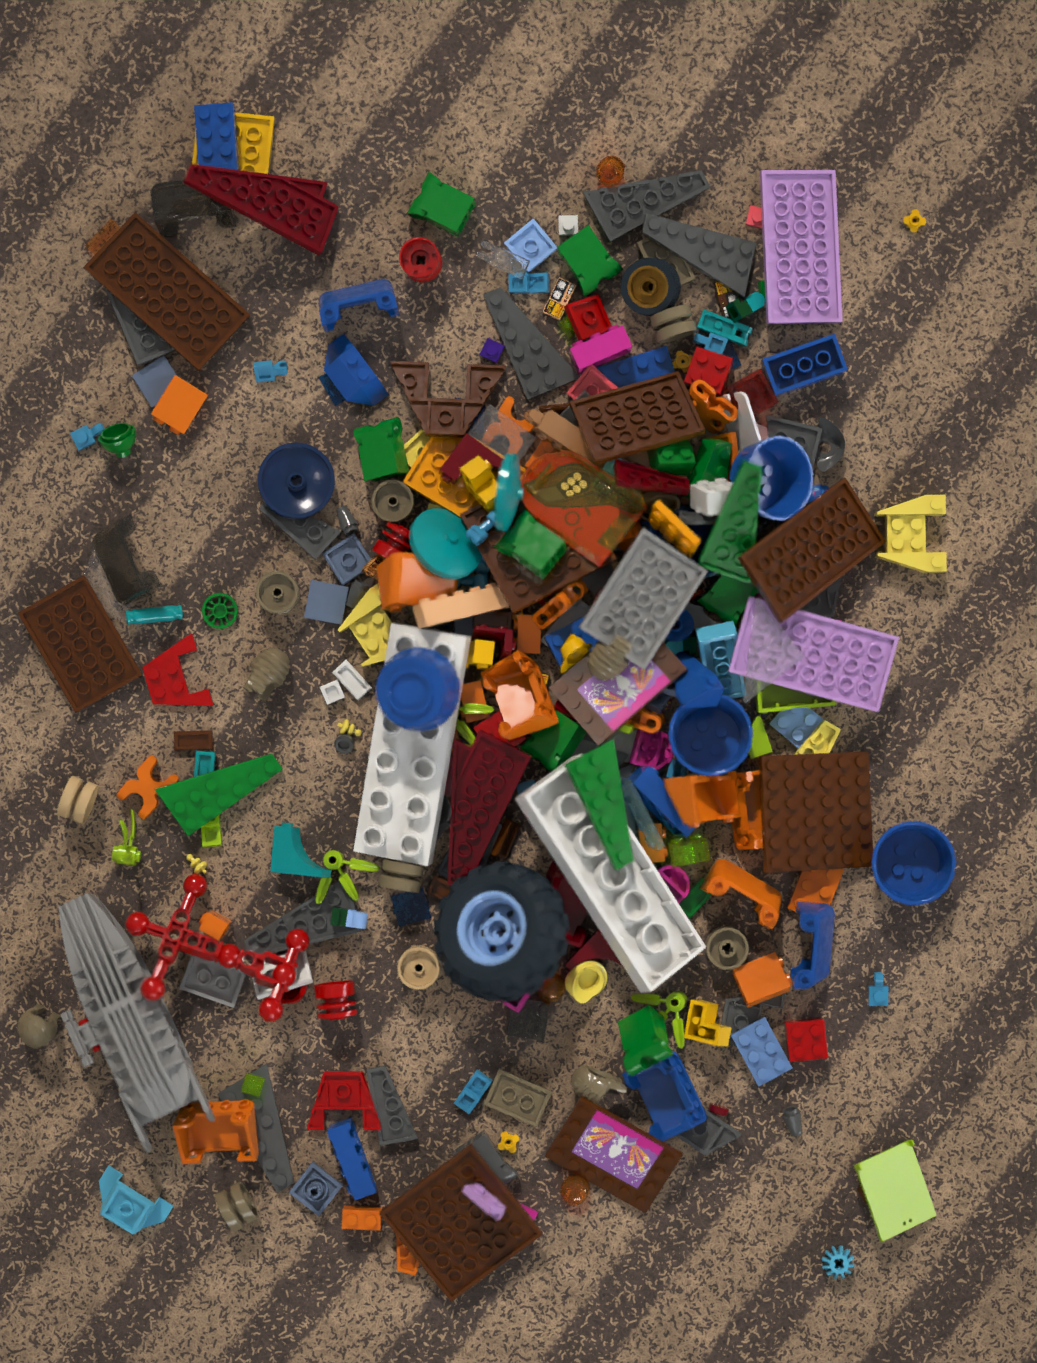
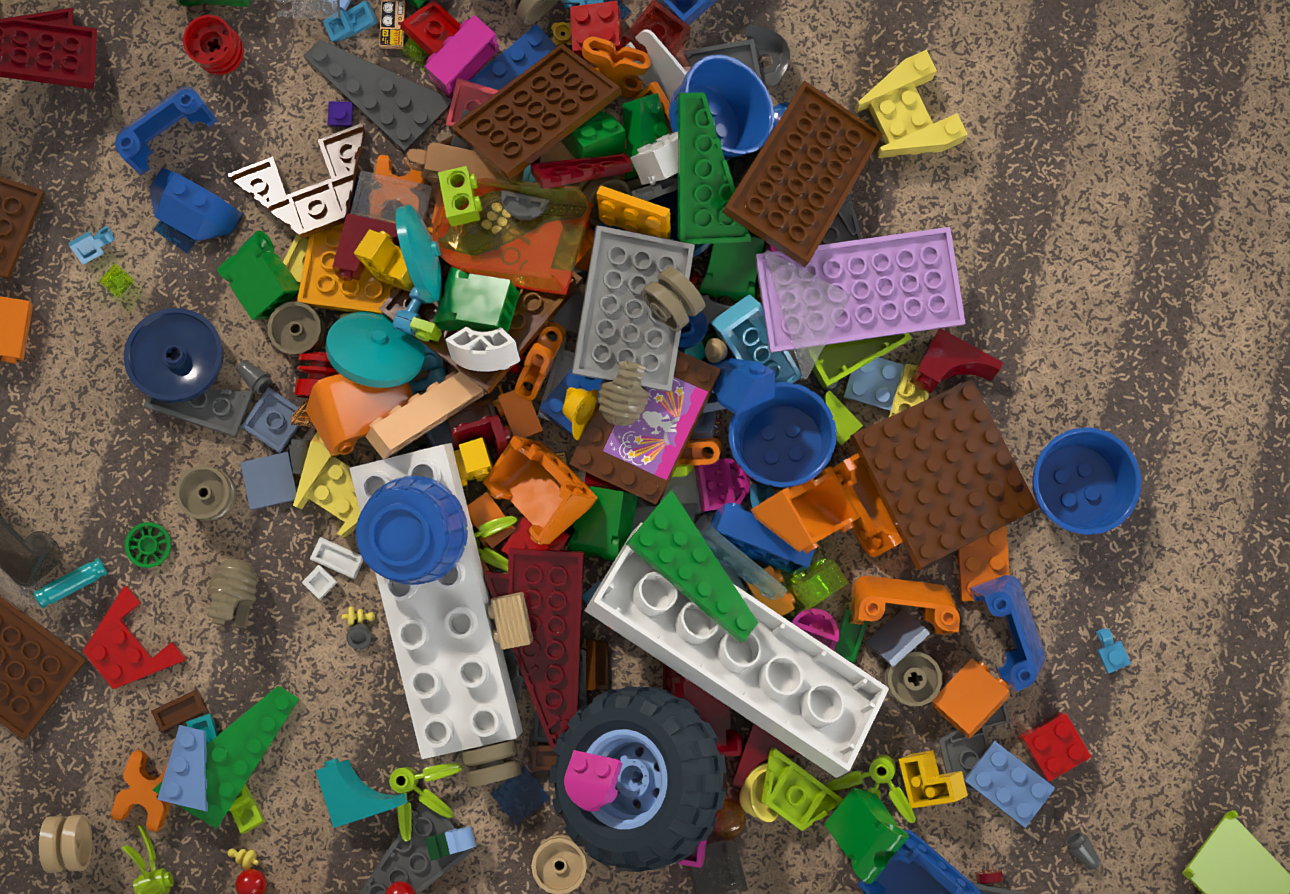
camera: 25 degrees left, 5 degrees down
(184, 786) = (186, 771): none -> medium blue wing
(276, 405) = (116, 280): none -> clear neon green plate
(459, 782) = (511, 621): none -> tan brick
(469, 919) = (591, 780): none -> dark pink slope
(487, 547) = (425, 330): none -> lime plate
(523, 583) = (483, 350): none -> white brick
(550, 459) = (455, 197): none -> lime brick
(597, 486) = (523, 206): none -> dark grey plate
(607, 991) = (795, 792): none -> lime wing
(674, 606) = (673, 298): none -> dark tan wheel
(690, 651) = (715, 350): none -> tan plate
(728, 914) = (897, 638): none -> sand blue tile
(859, 729) = (951, 357): none -> dark red arch

